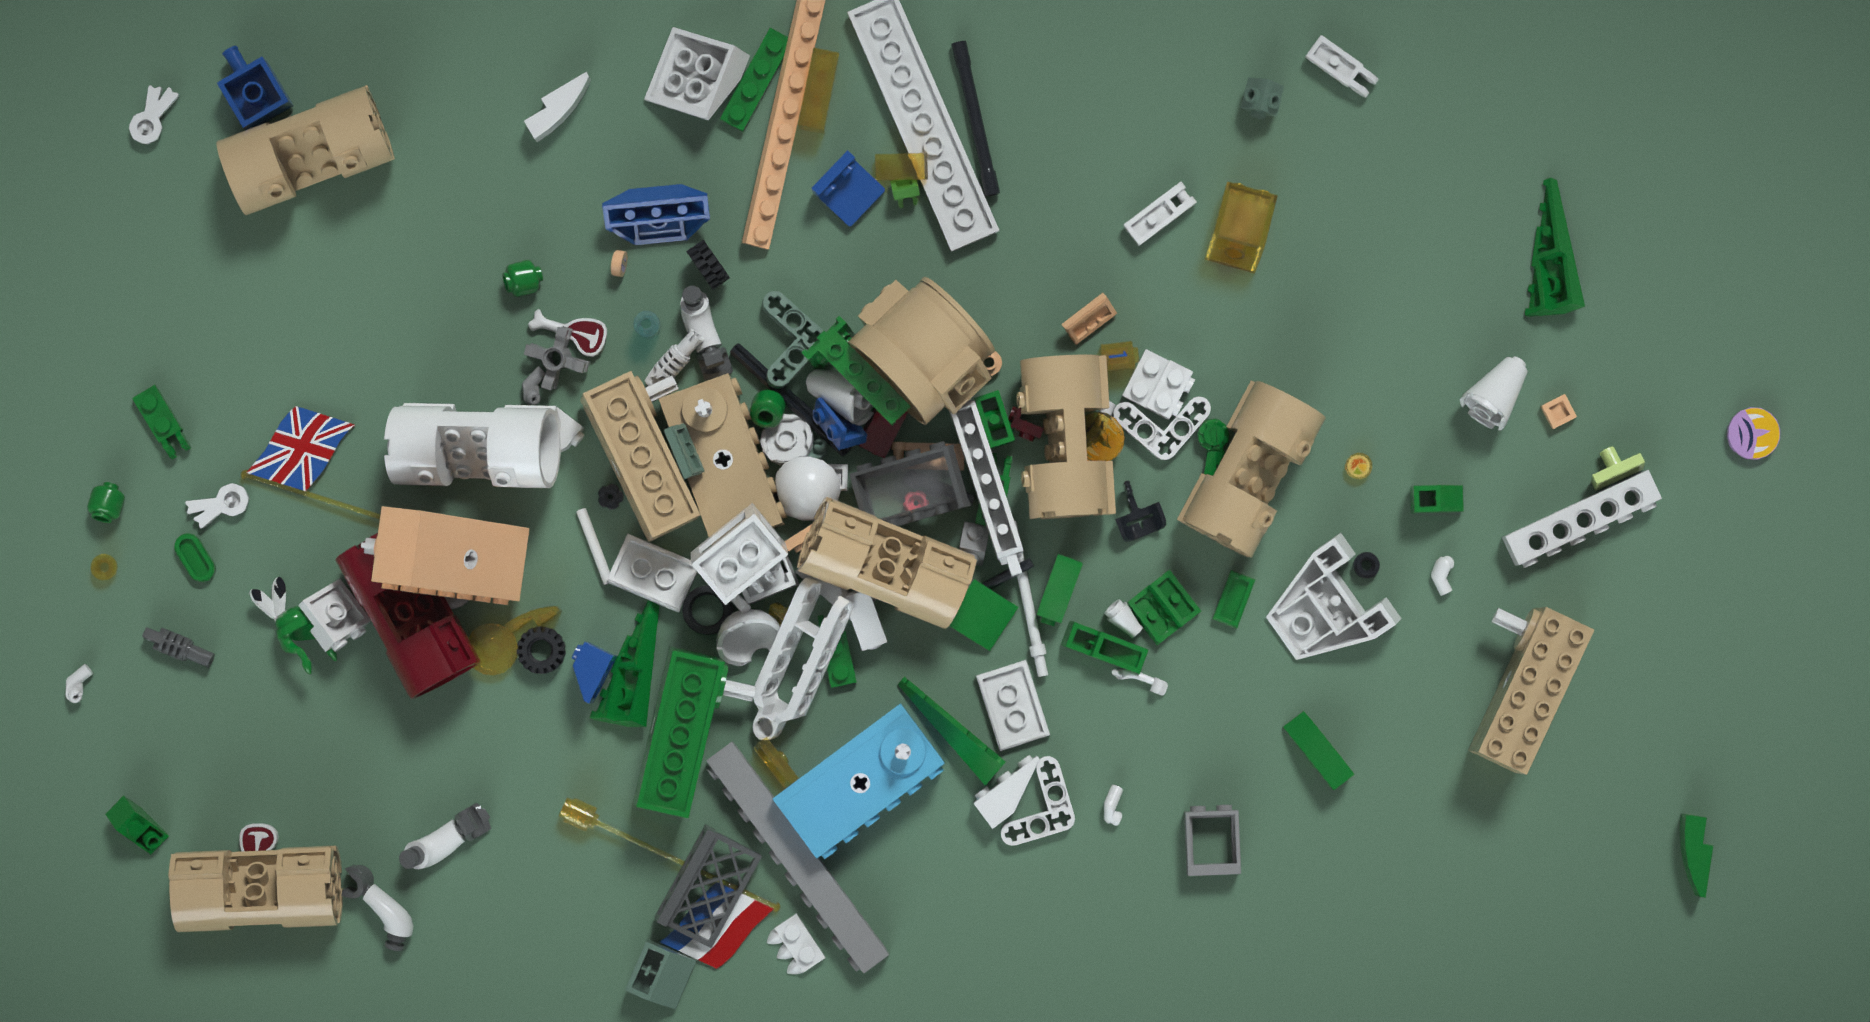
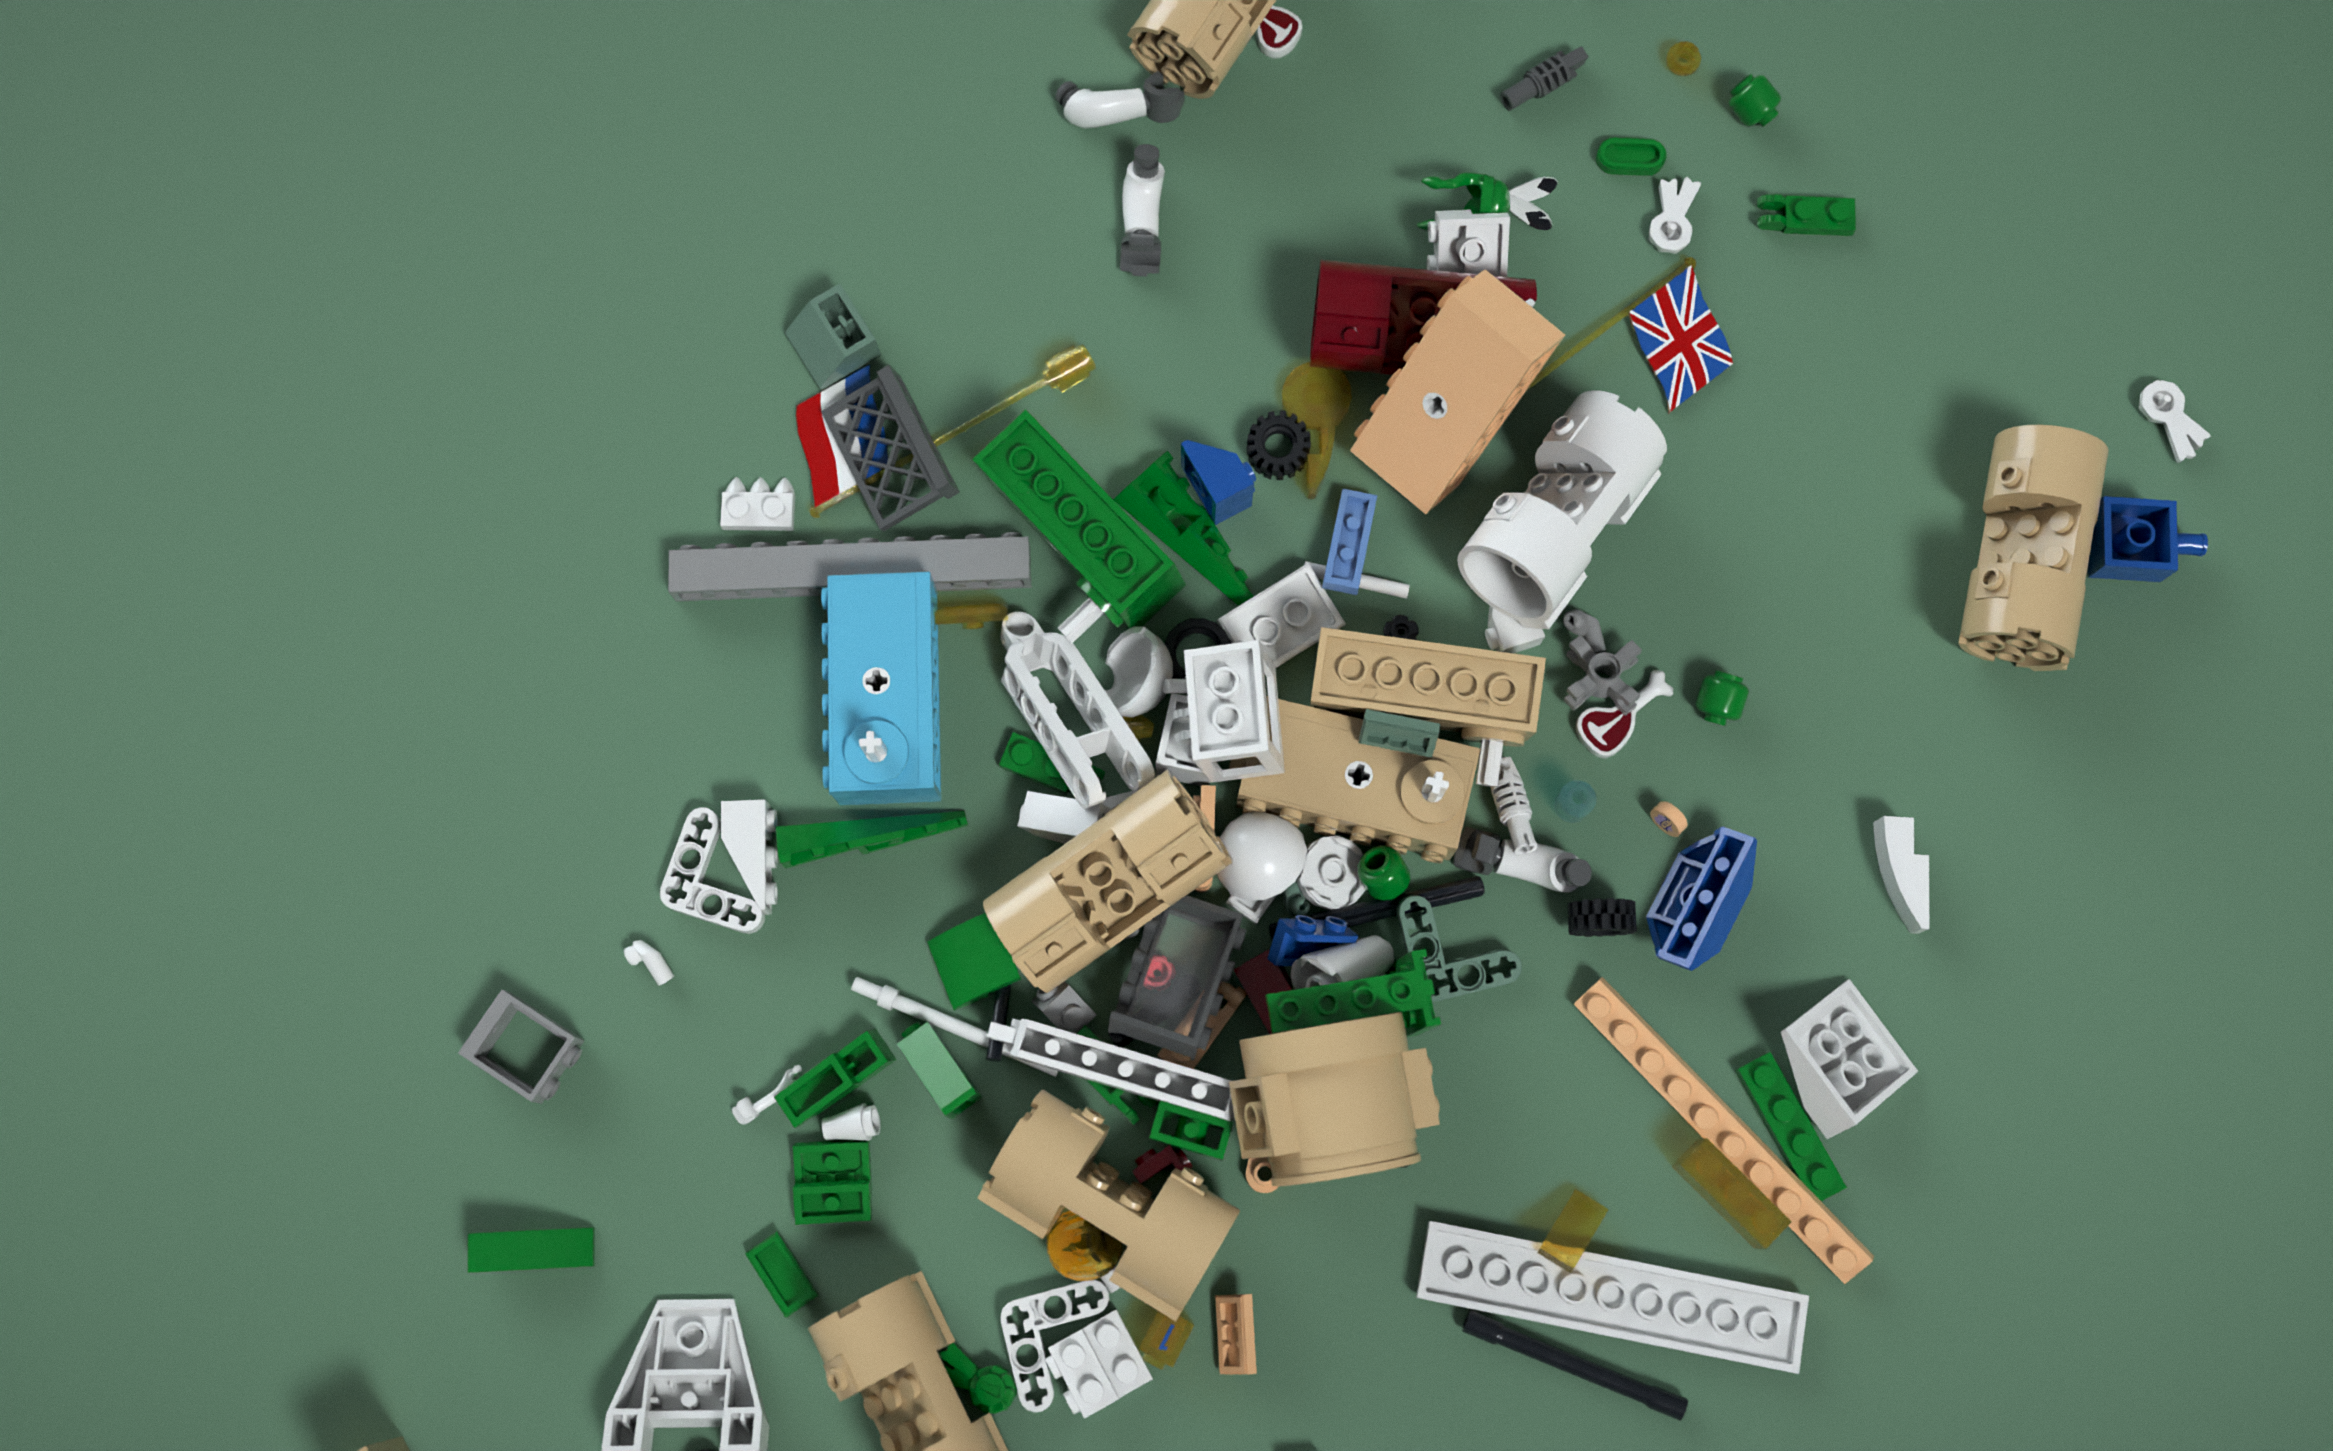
camera: 125 degrees right, 10 degrees down
(575, 564) = (1349, 542): none -> medium blue plate
(848, 189) = (1587, 1147): blue bracket -> none
(905, 189) = (1542, 1215): bright green tile -> none
(1013, 705) = (846, 925): white tile -> none
(1150, 524) = (939, 1235): black helmet -> none

